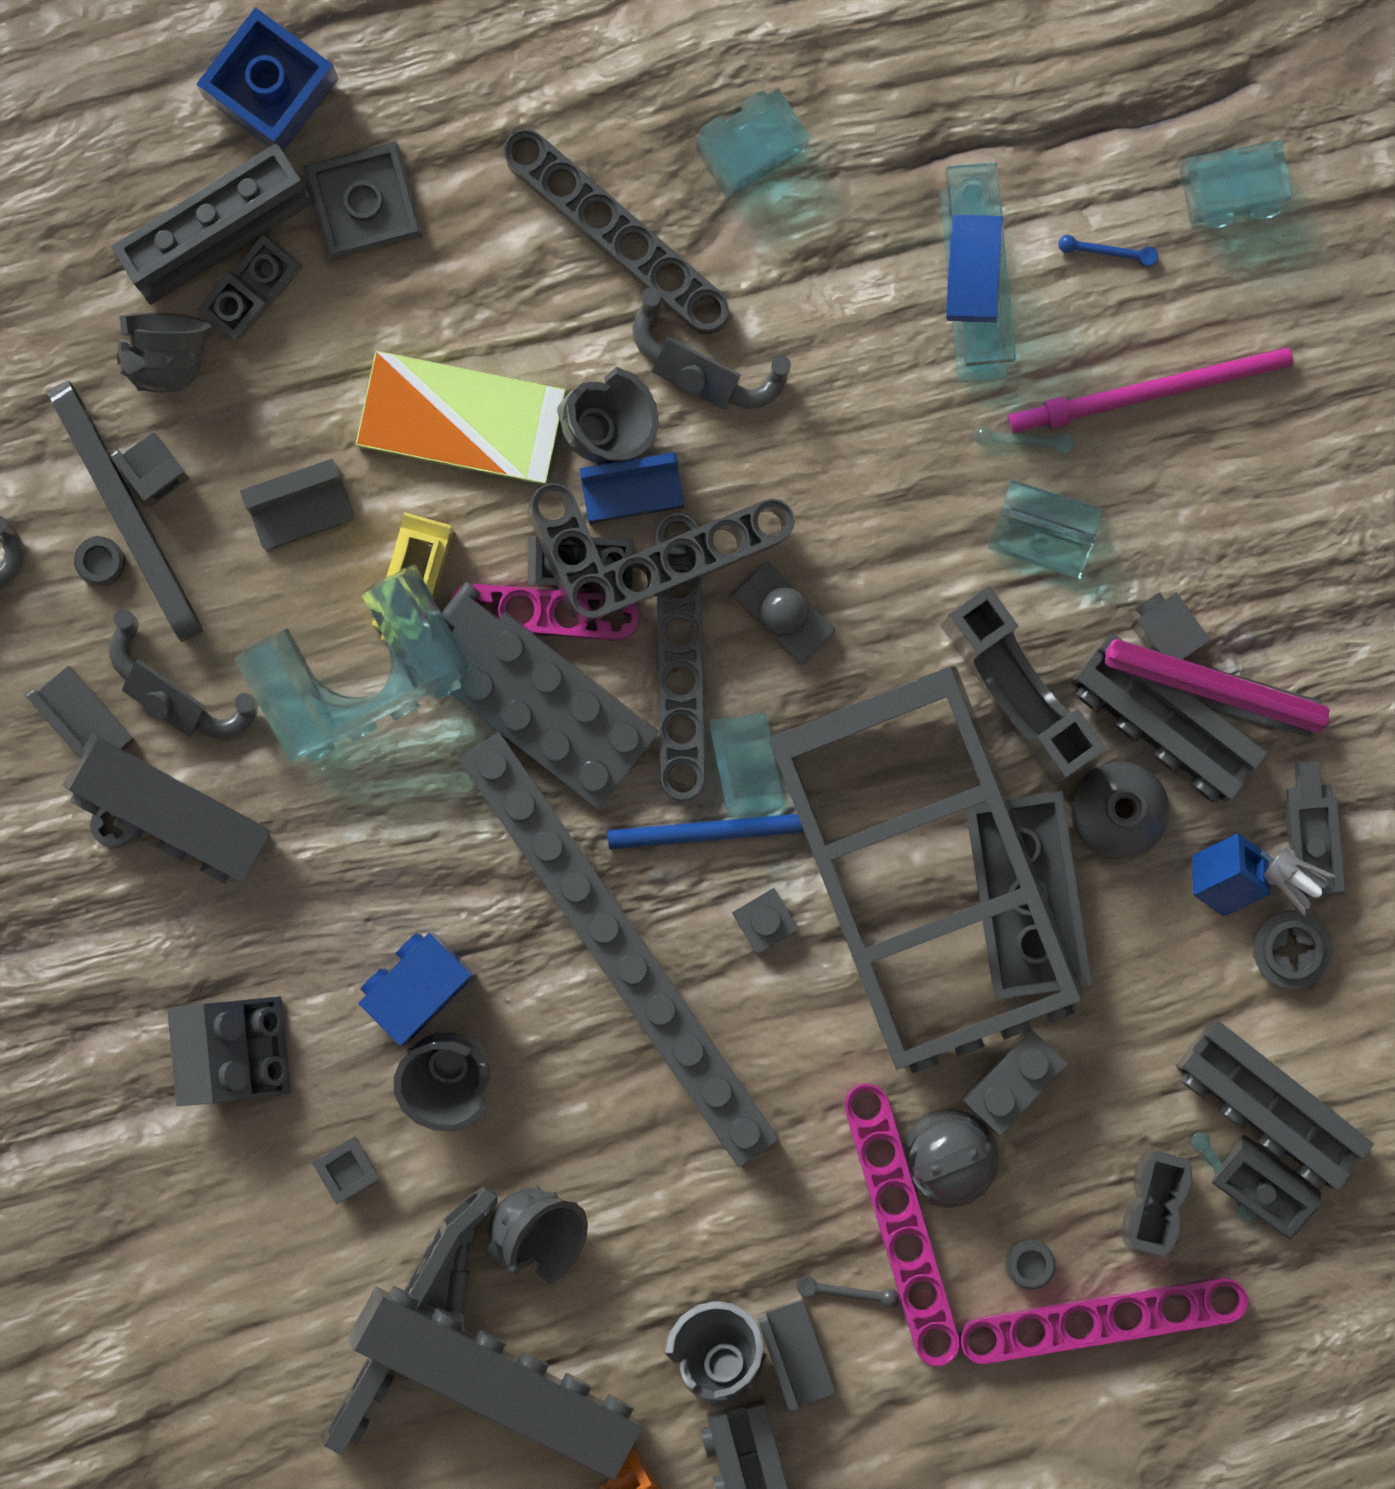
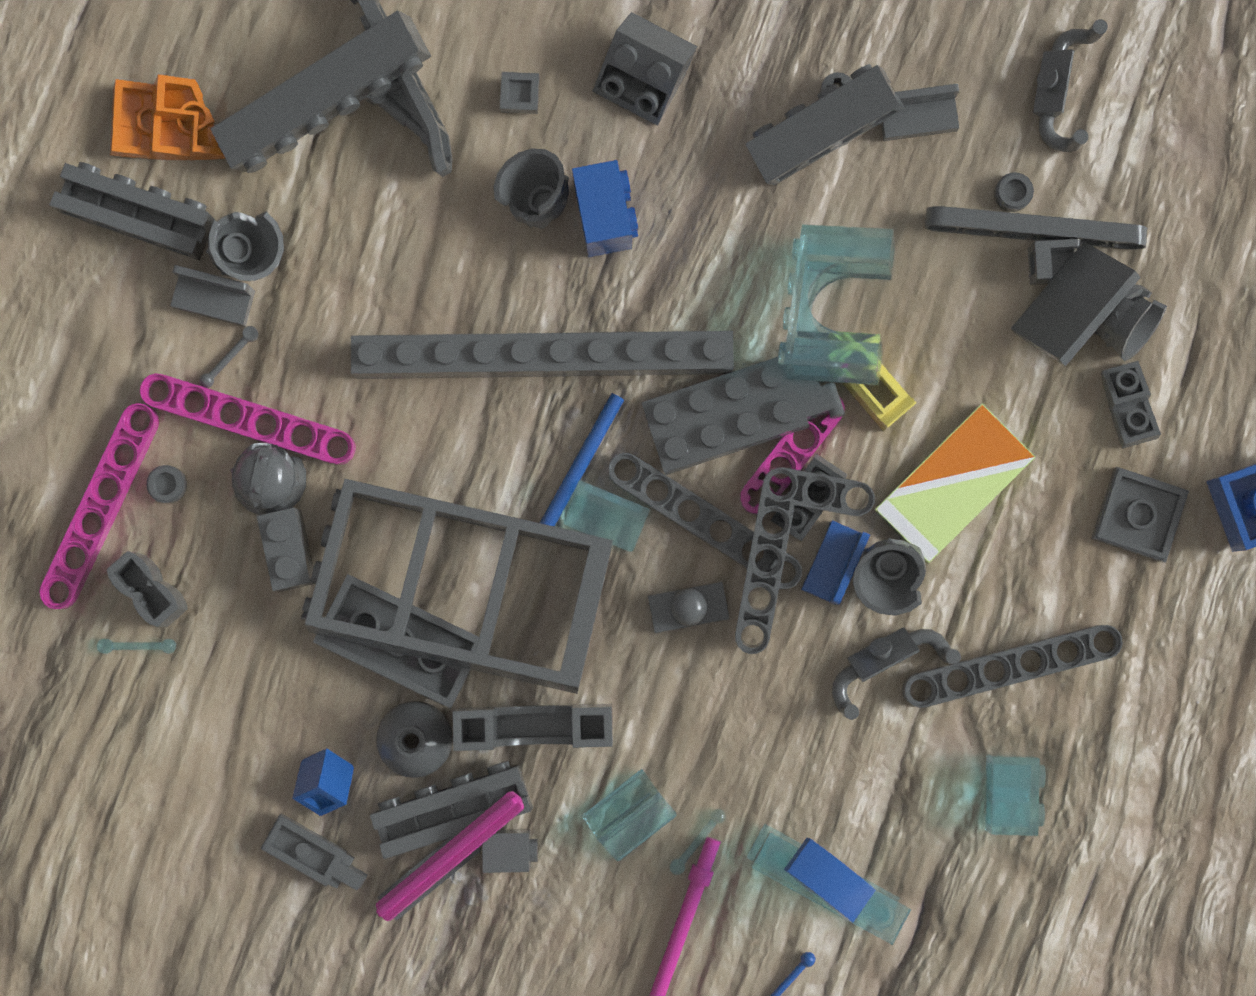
camera: 130 degrees right, 0 degrees up
(164, 699) = (897, 172): dark grey piece -> none
(183, 414) = (1075, 303): none -> dark grey tile
(212, 224) = (1189, 404): dark grey brick -> none
(298, 504) = (967, 341): dark grey panel -> none
(537, 1228) = (401, 187): dark grey helmet -> none
(765, 921) = (498, 461): dark grey plate -> none
(1267, 1187) = (109, 669): dark grey slope -> none
(1274, 1105) = (157, 708): dark grey brick -> none
(1291, 874) = (291, 821): flat silver piece -> none
(1310, 964) = (232, 795): dark grey gear -> none

